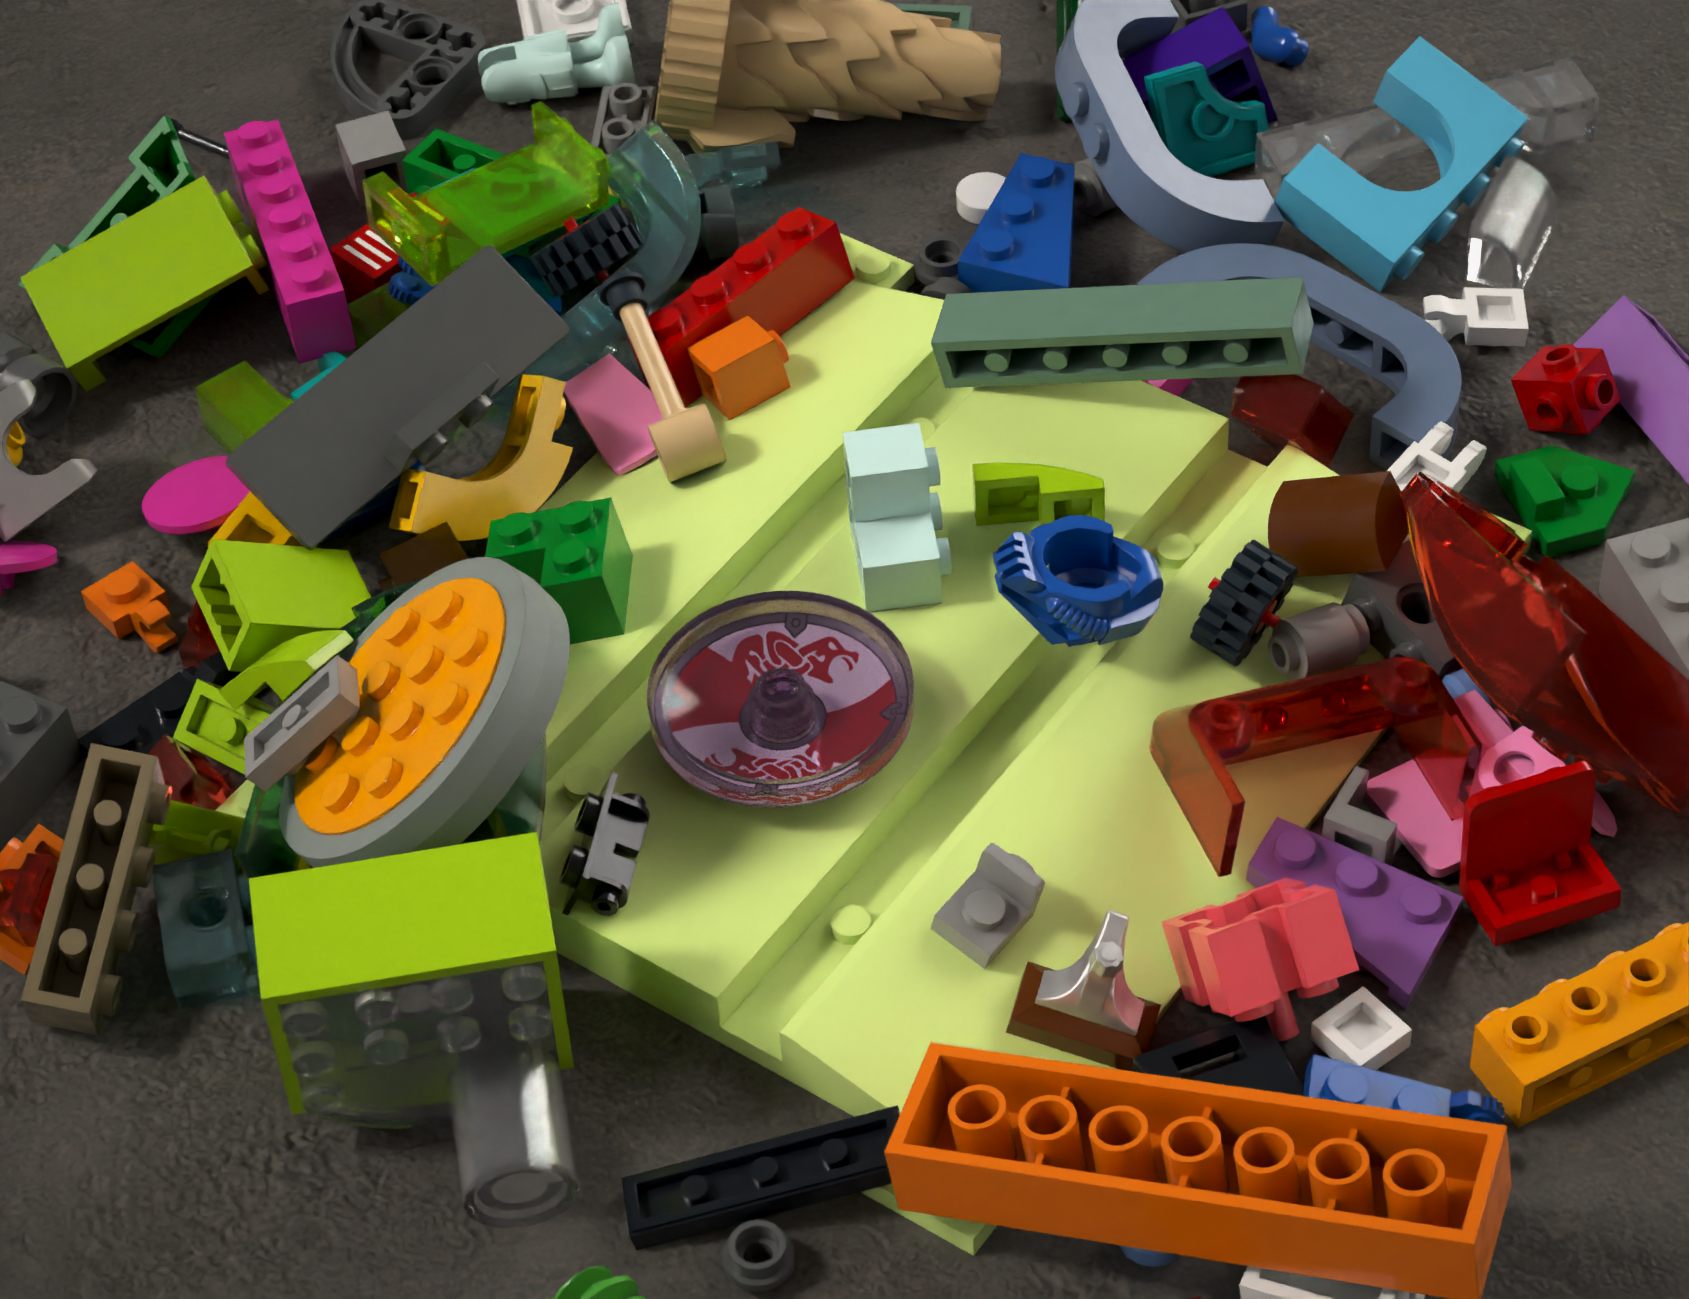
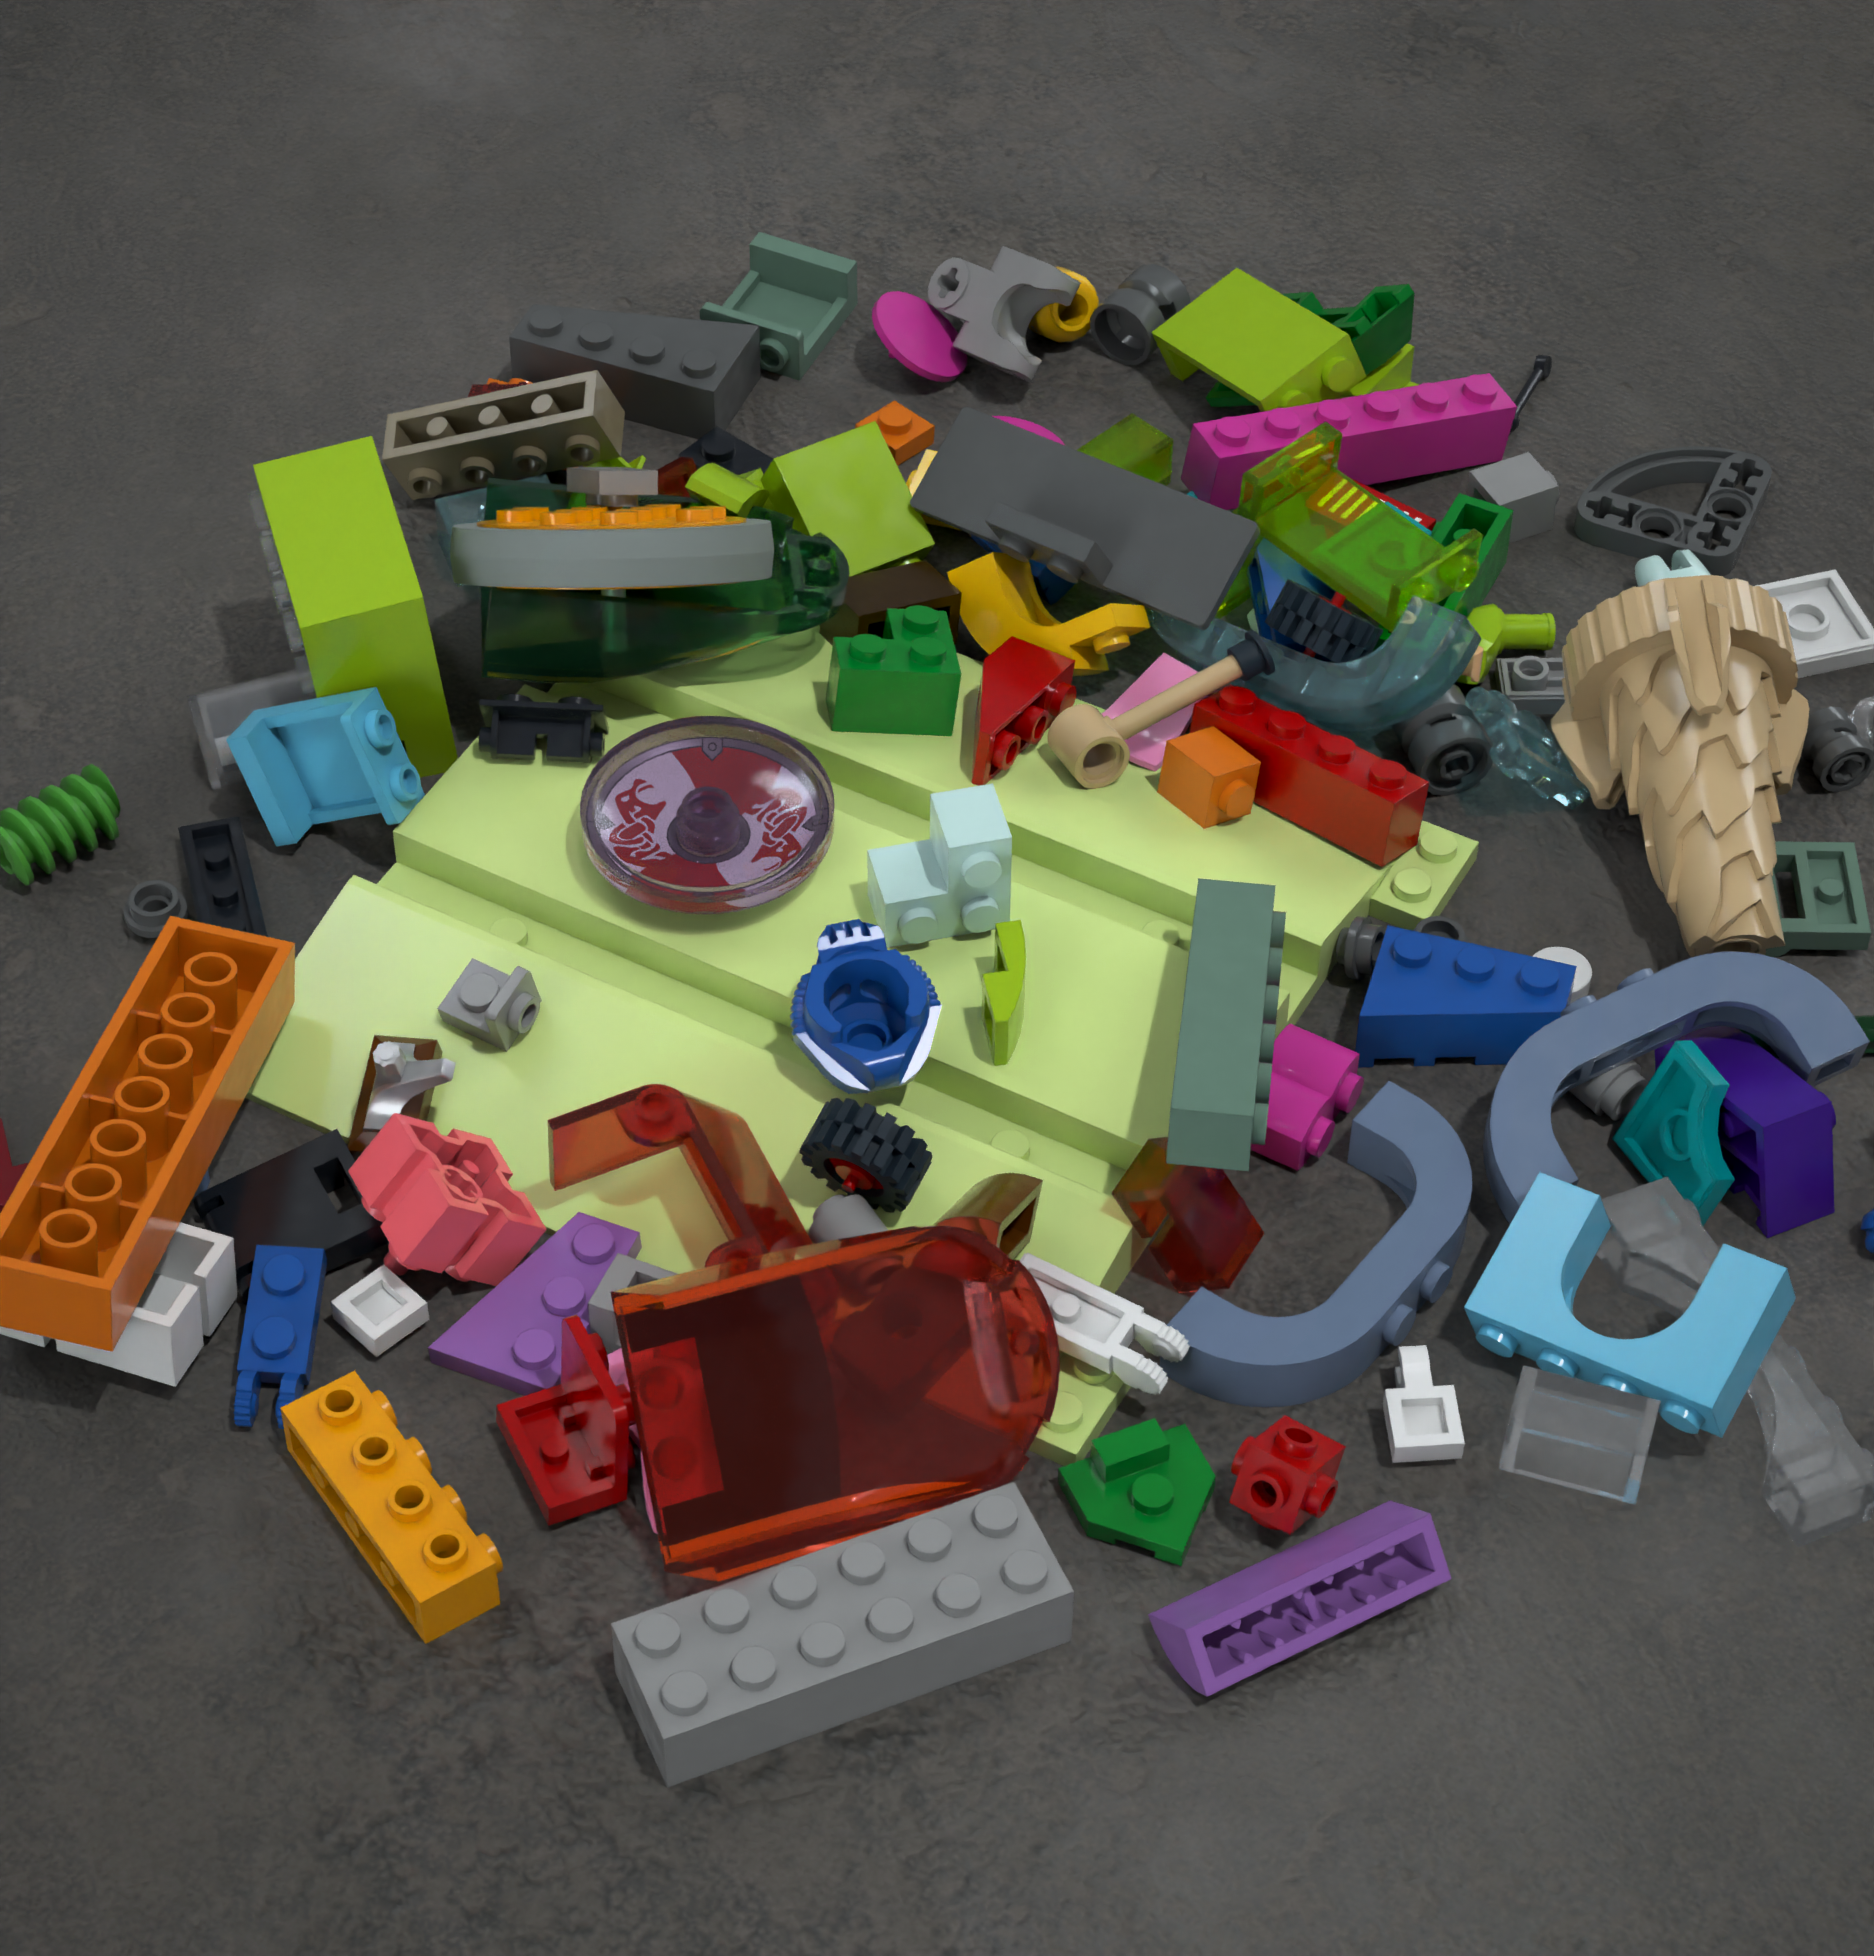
camera: 80 degrees right, 0 degrees up
(618, 1032) = (325, 763): none -> medium azure panel
(647, 496) = (1017, 702): none -> red slope

